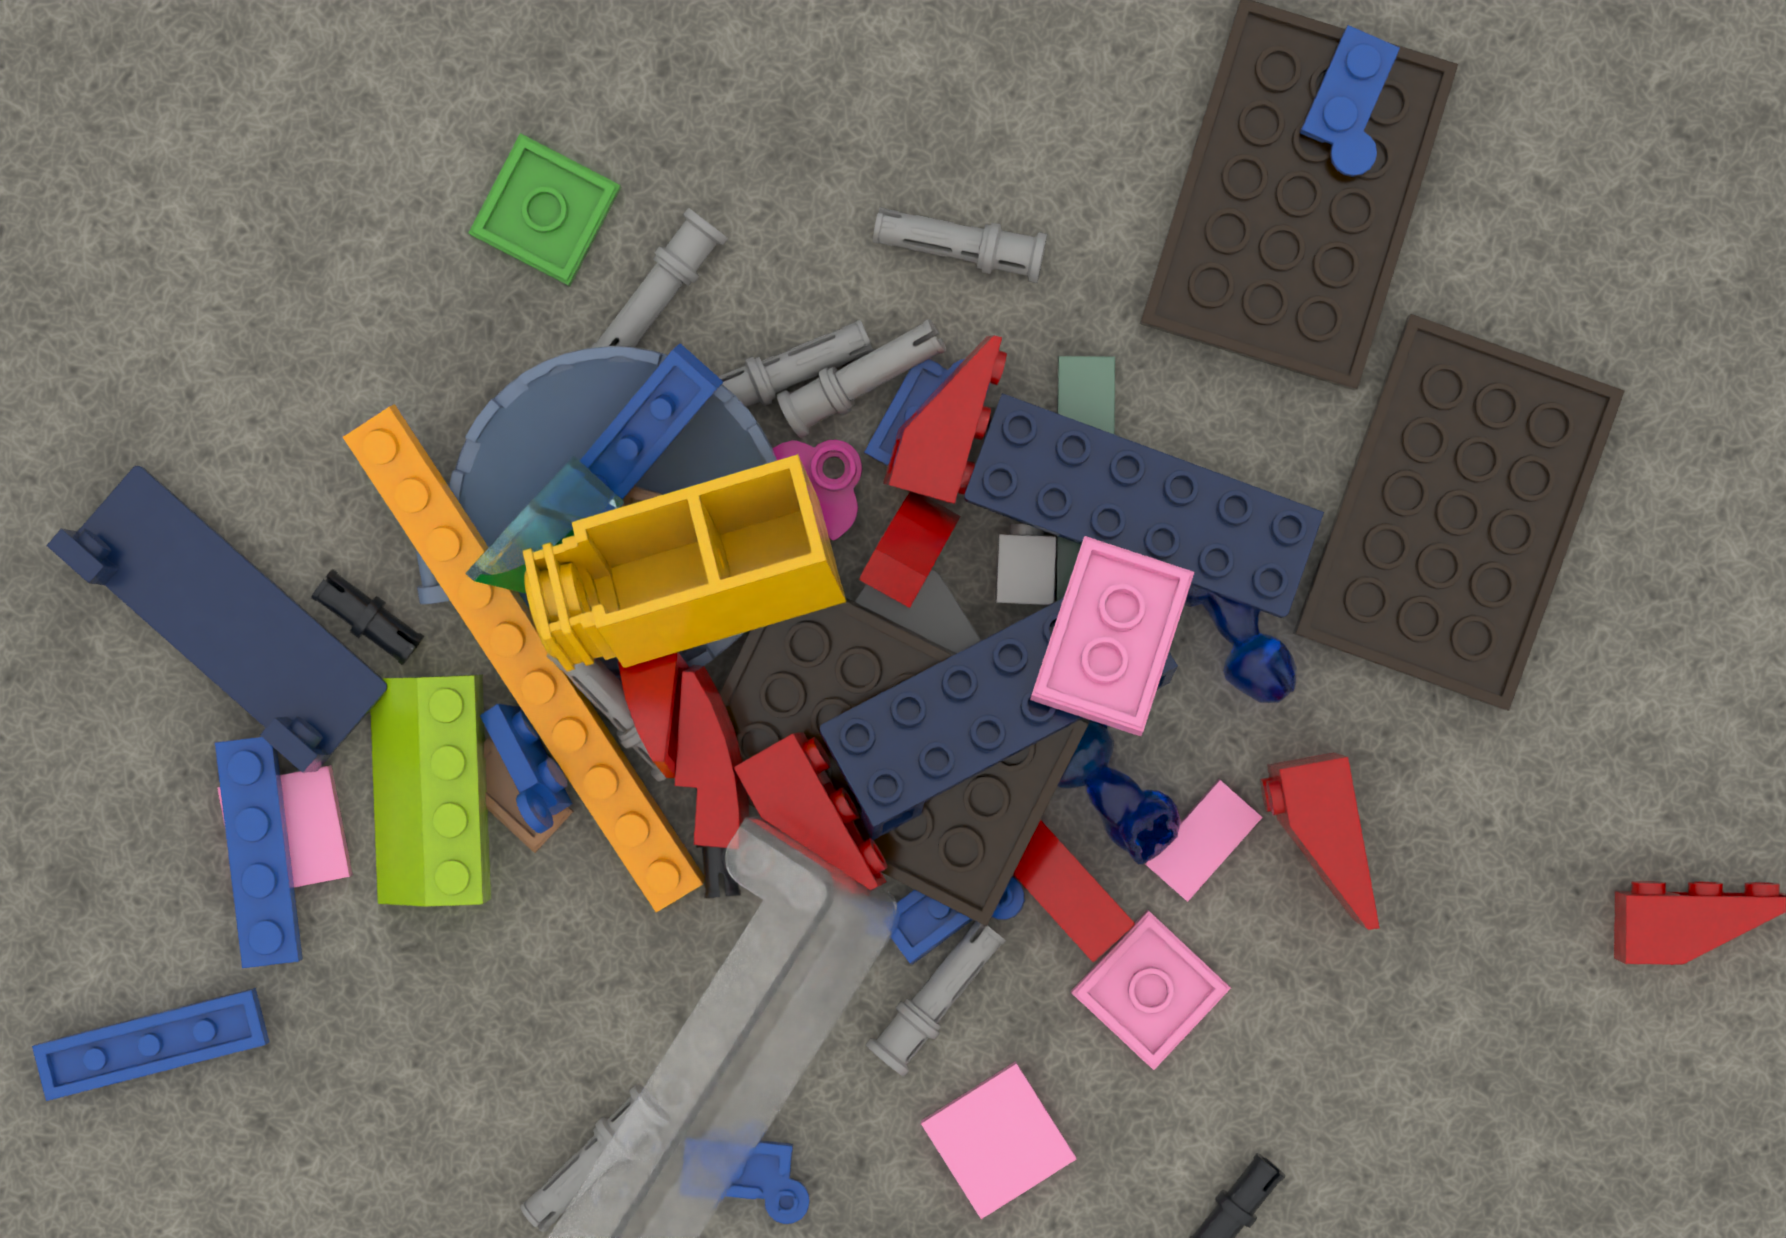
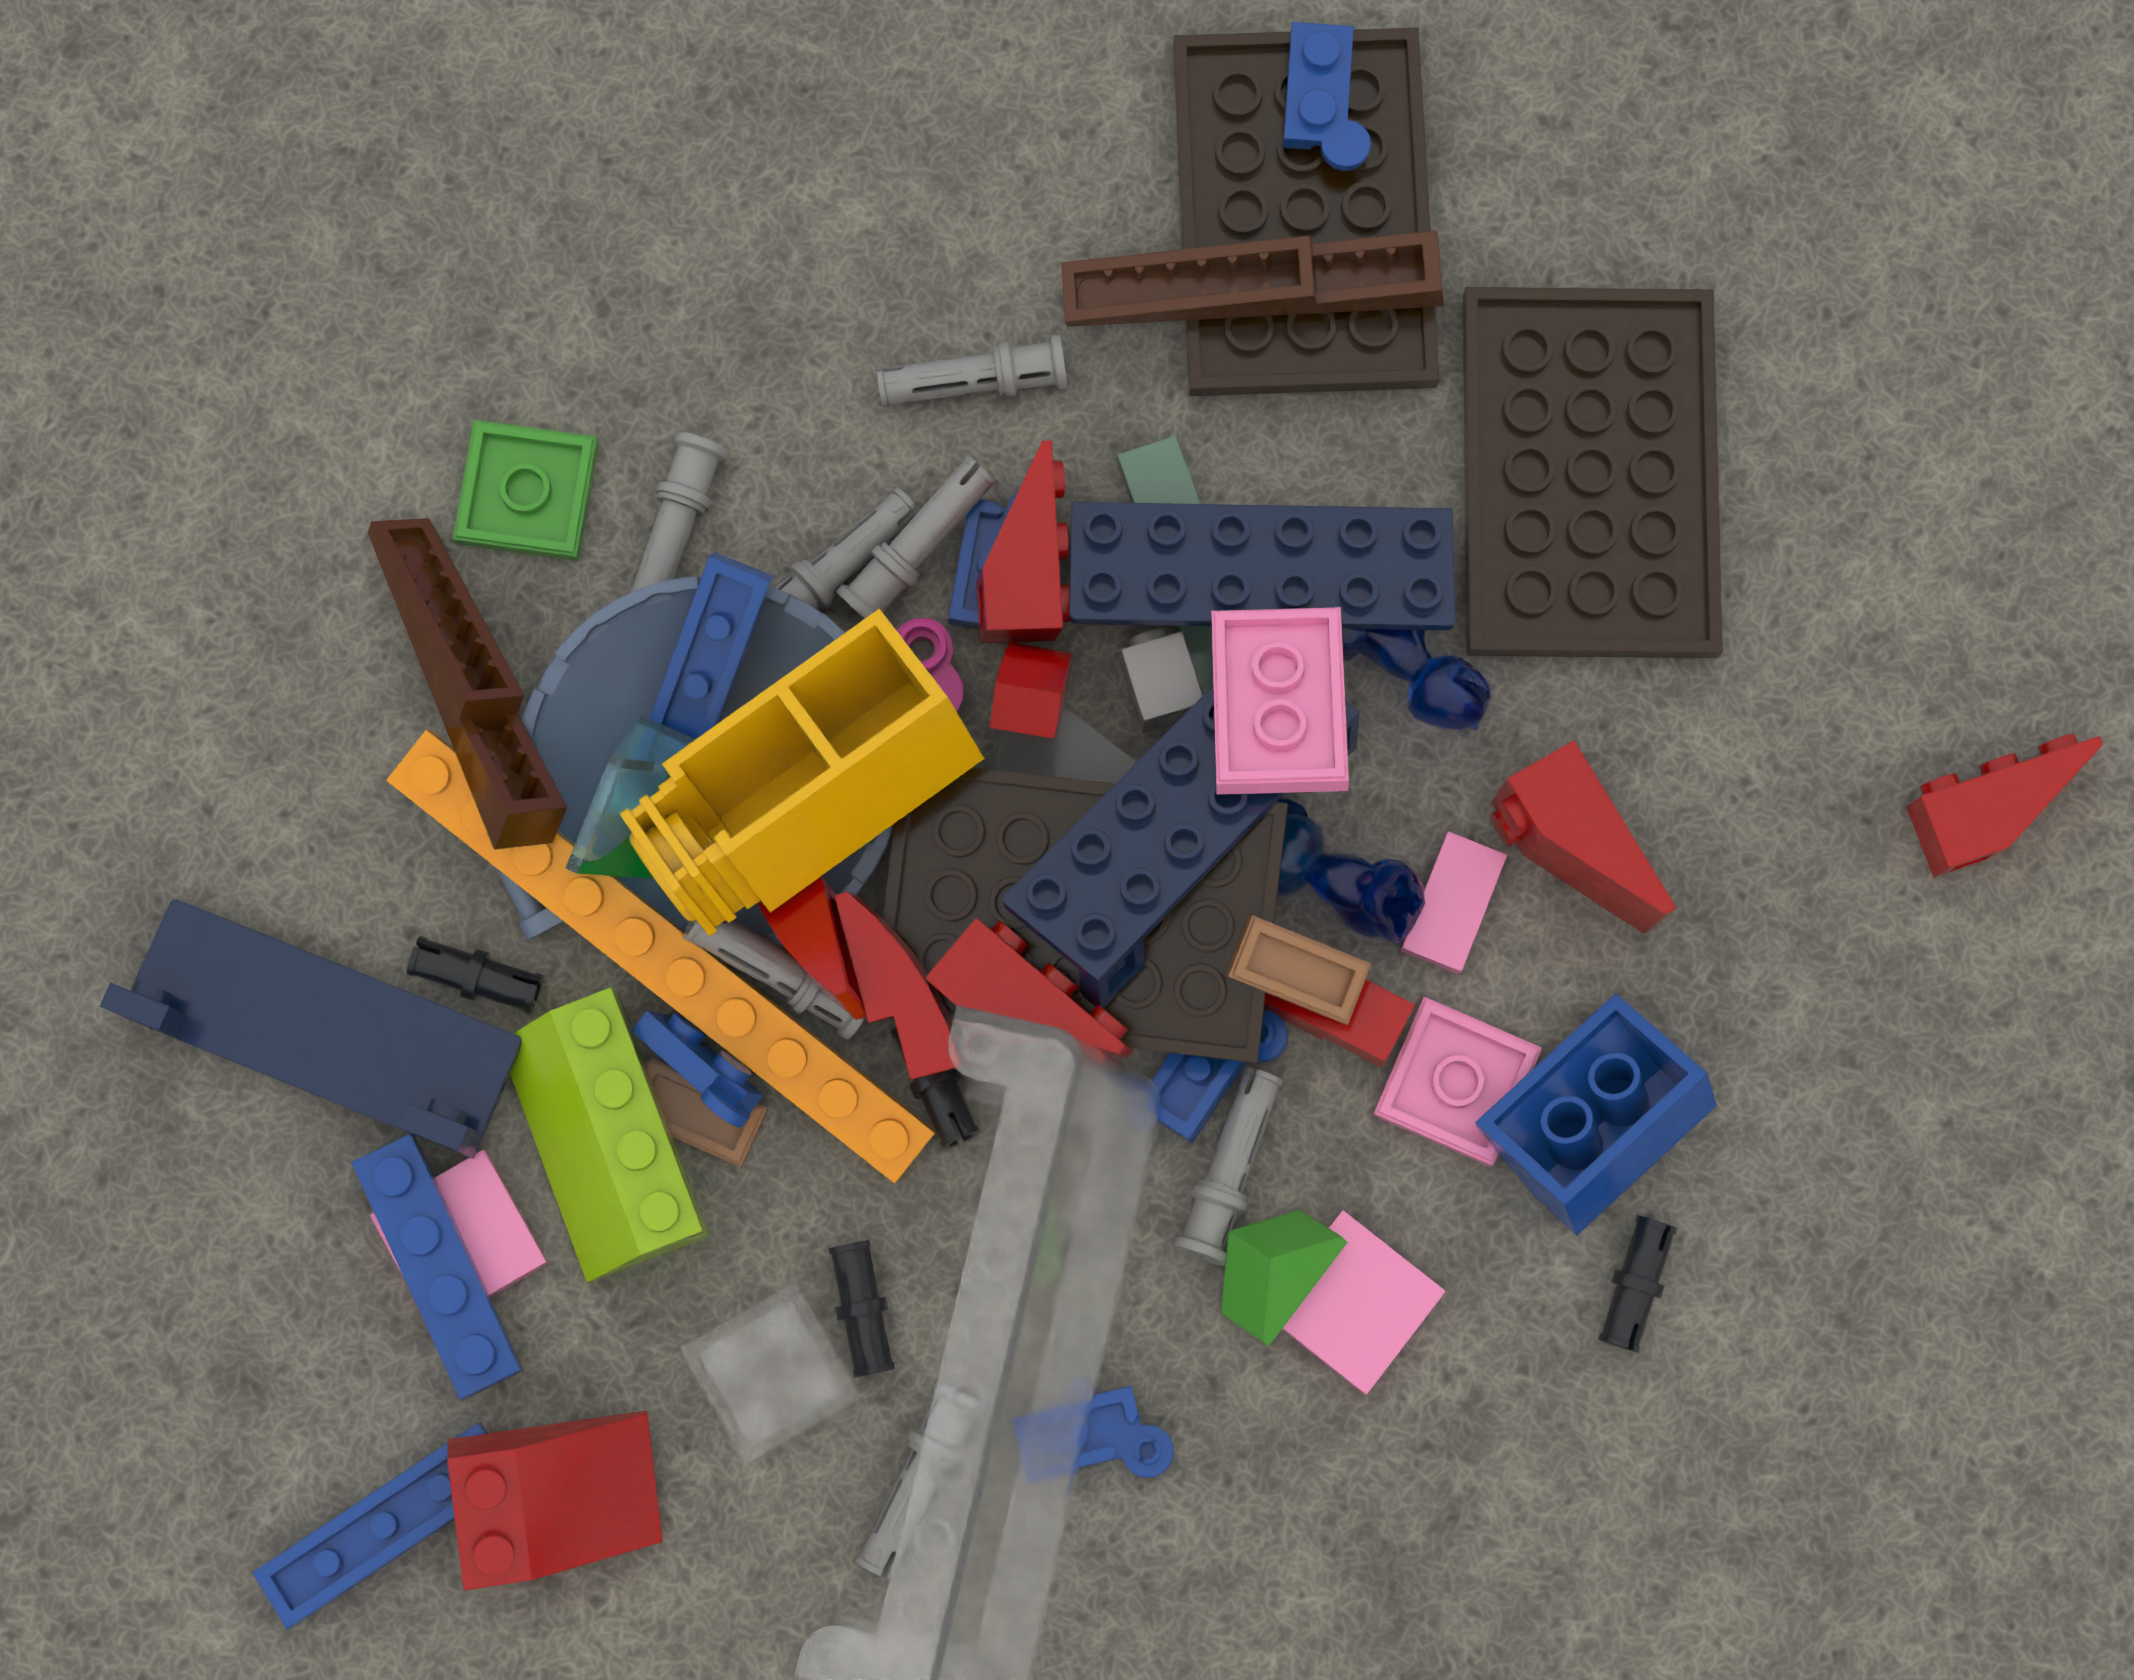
camera: 20 degrees left, 10 degrees down
(290, 1074) = (552, 1497): none -> red slope
(438, 373) = (469, 685): none -> reddish brown slope
(503, 1035) = (772, 1373): none -> clear brick
(594, 1005) = (861, 1308): none -> black pin
(943, 1094) = (1274, 1269): none -> bright green slope
(1046, 864) = (1297, 969): none -> medium nougat tile
(1229, 247) = (1255, 280): none -> reddish brown slope
(1254, 1060) = (1597, 1113): none -> blue slope

